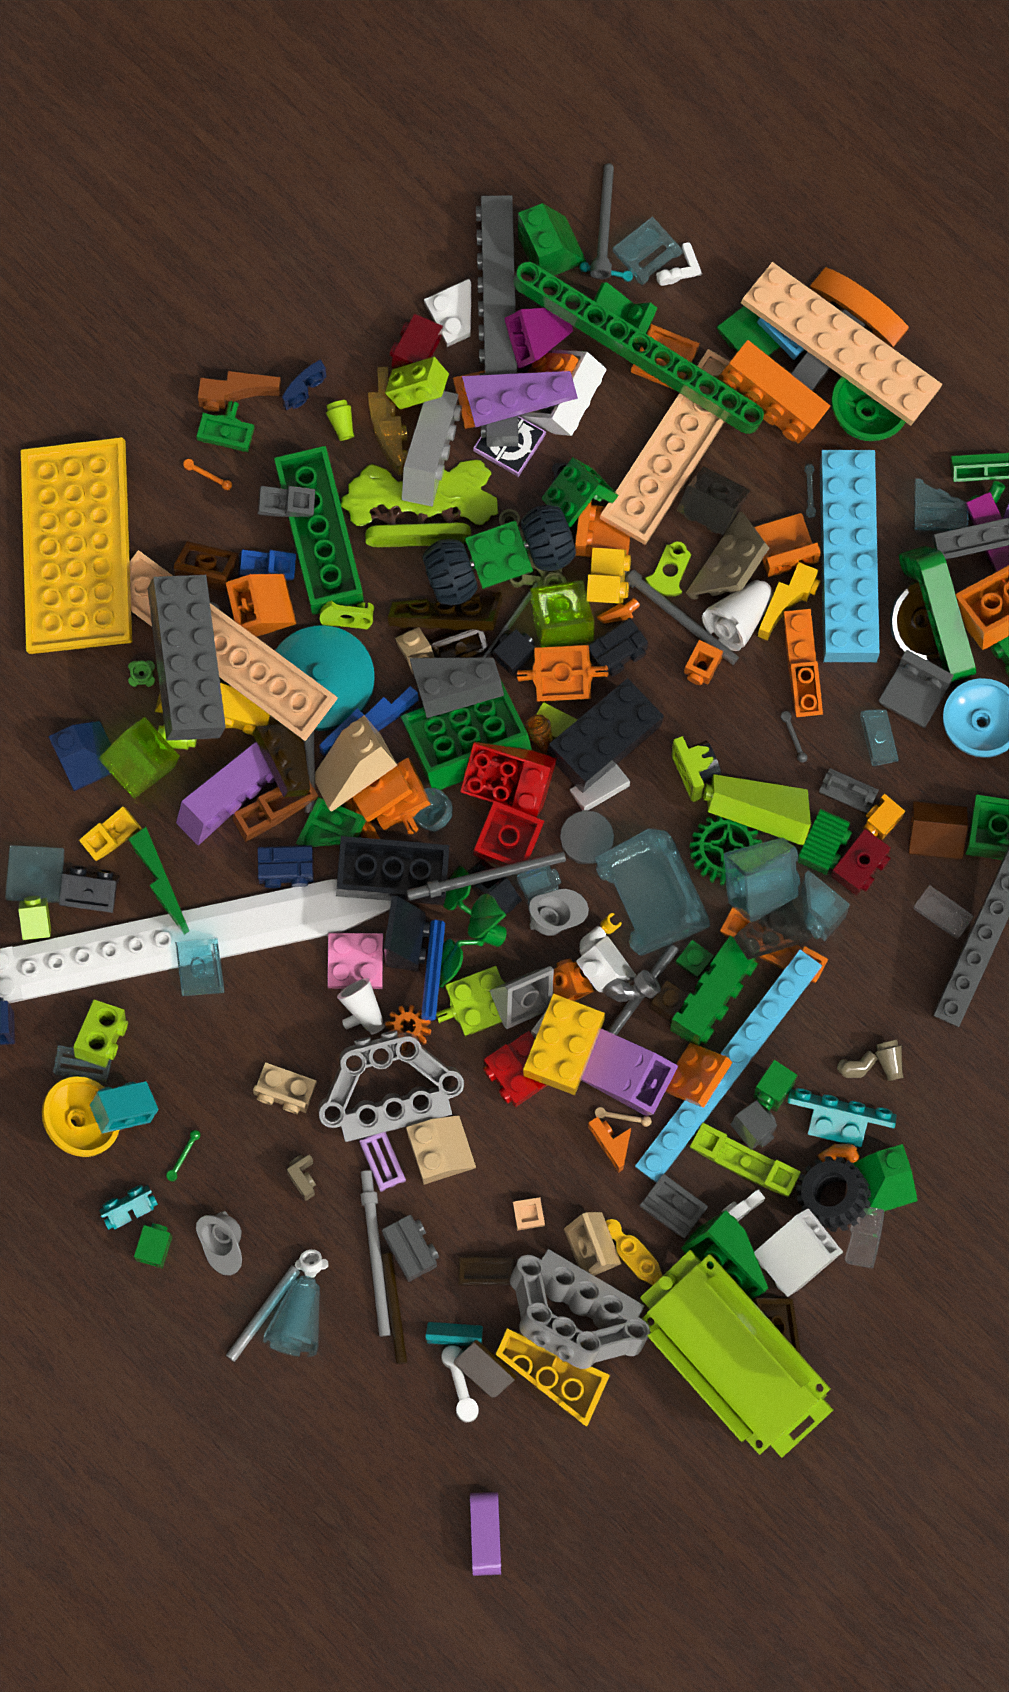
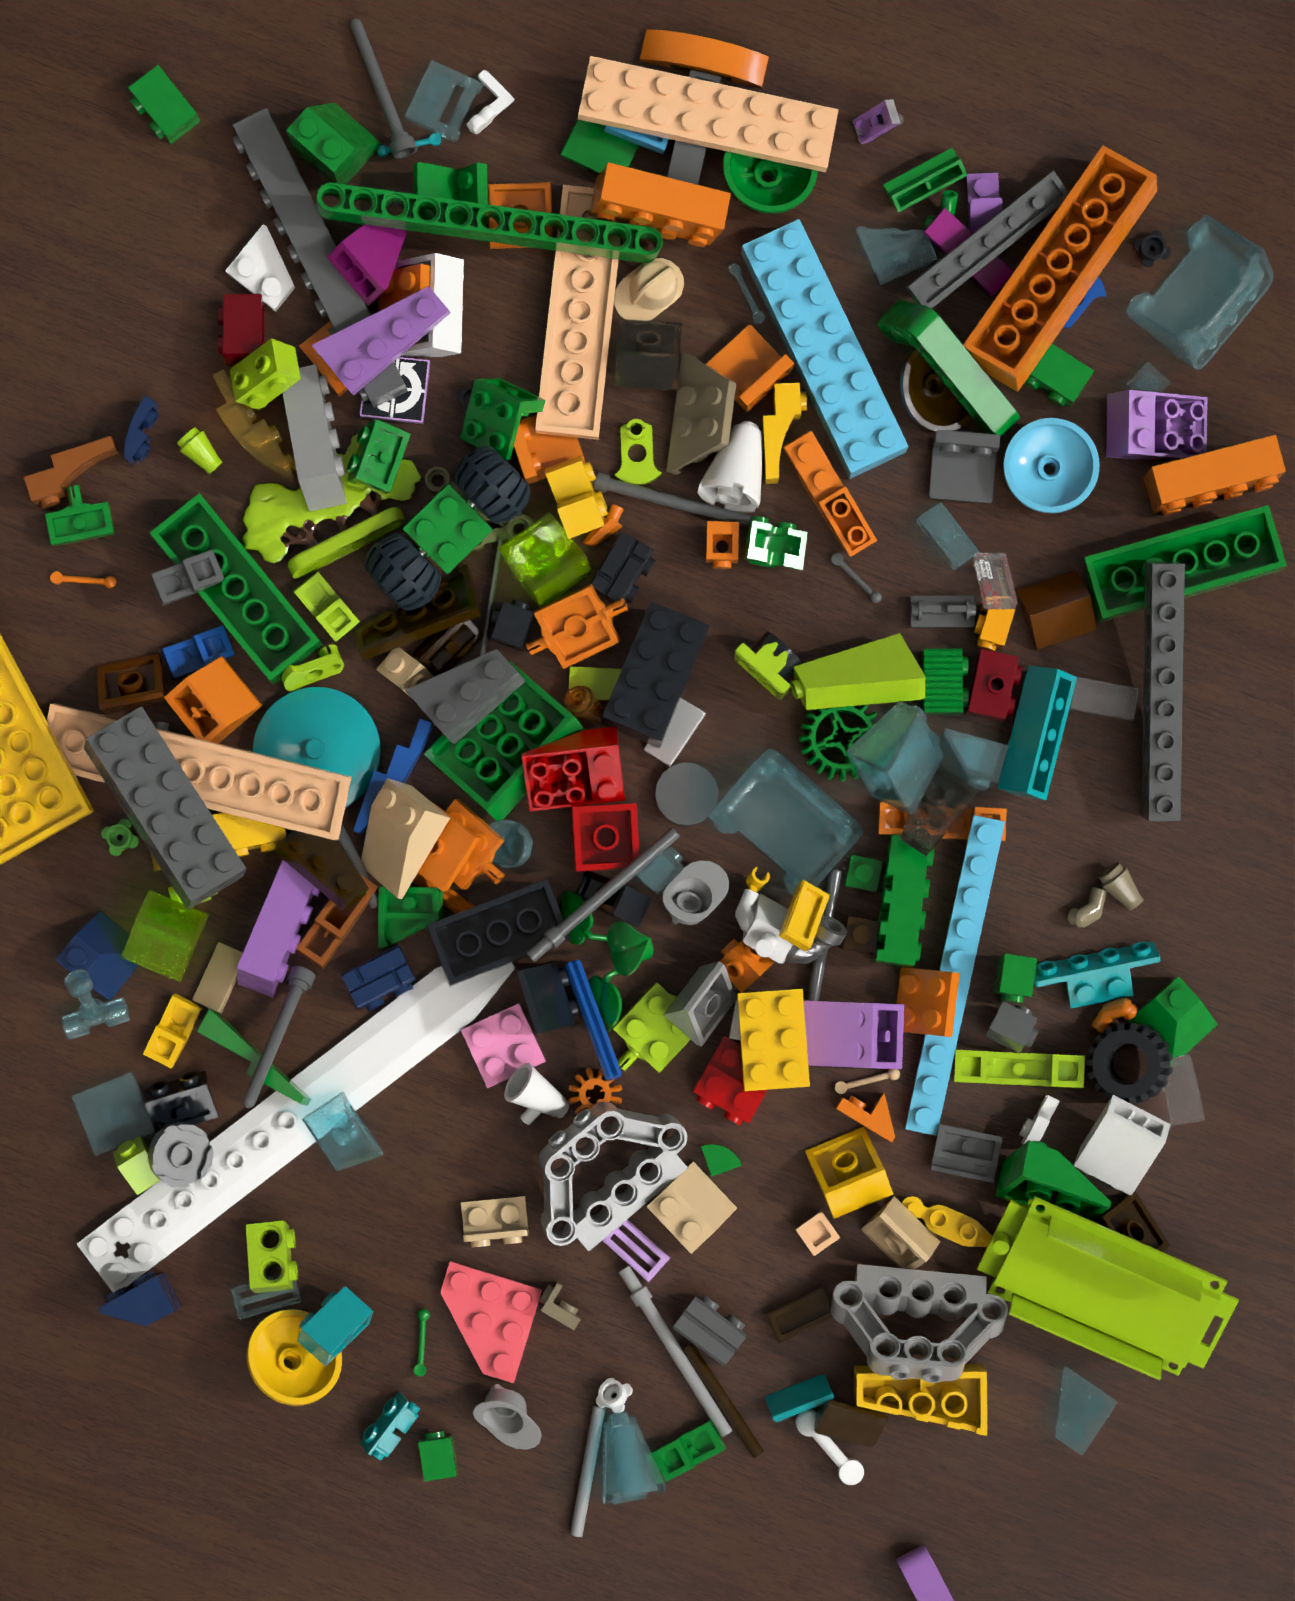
camera: 25 degrees left, 10 degrees up
(57, 790) = (92, 1011): none -> clear light blue bar
(70, 923) = (180, 1154): none -> tile
(163, 811) = (218, 978): none -> tan slope
(224, 840) = (300, 981): none -> dark grey piece
(246, 1161) = (492, 1316): none -> coral plate
(348, 1334) = (688, 1450): none -> green slope
(380, 575) = (326, 606): none -> lime slope
(437, 161) = (163, 104): none -> green brick
(473, 481) = (377, 455): none -> green bracket
(480, 1123) = (719, 1159): none -> green tile
(575, 1179) = (849, 1172): none -> yellow slope
(632, 961) = (804, 915): none -> yellow tile
(670, 1448) = (1081, 1411): none -> clear light blue wing
(736, 455) = (648, 290): none -> tan piece
(742, 683) = (774, 545): none -> green cylinder
(879, 912) = (1037, 728): none -> teal brick
(899, 784) = (995, 581): none -> clear tile
(969, 407) = (877, 121): none -> medium lavender piece

